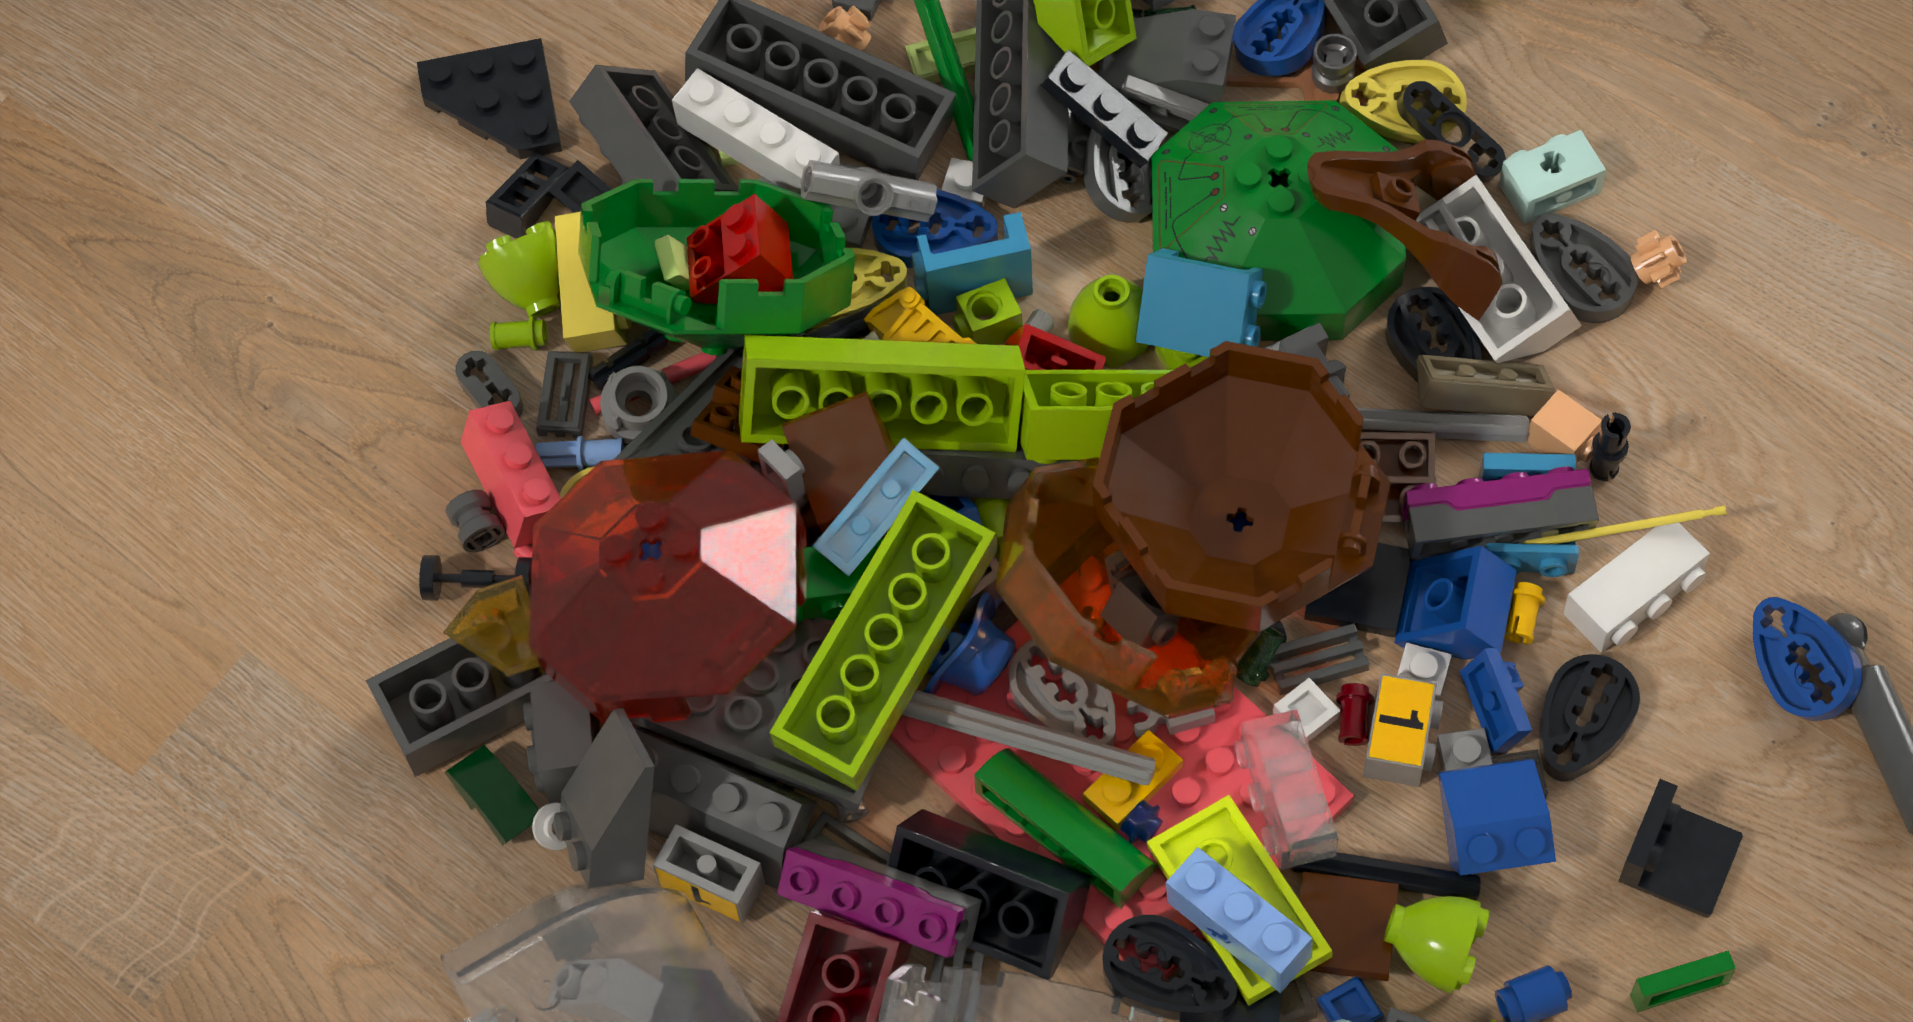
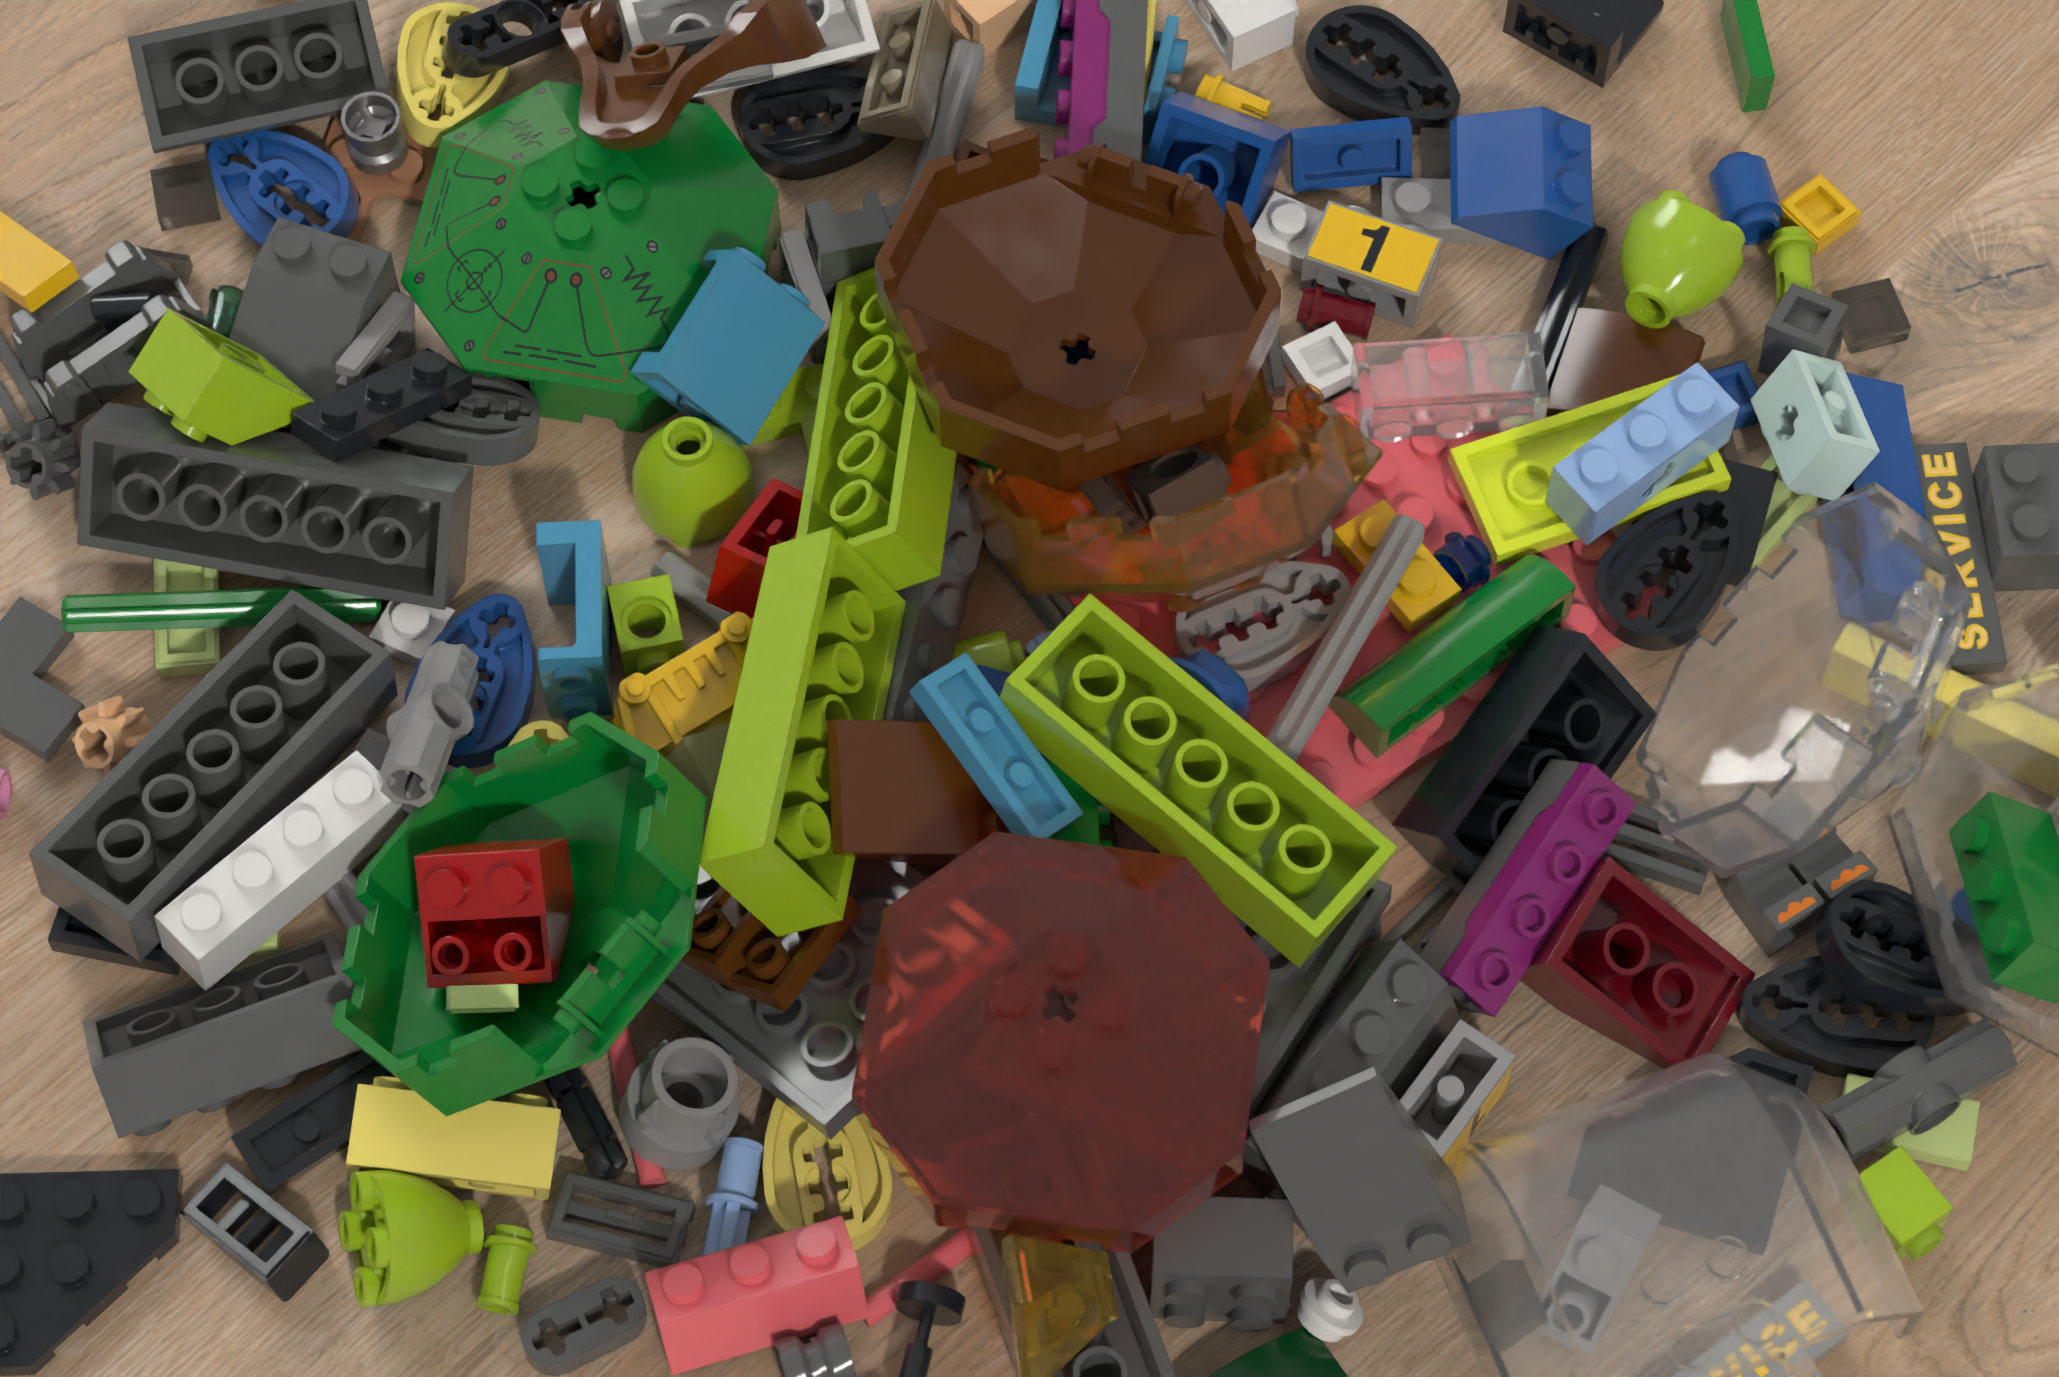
camera: 85 degrees left, 0 degrees up
(783, 471) = (909, 861): light grey plate -> none

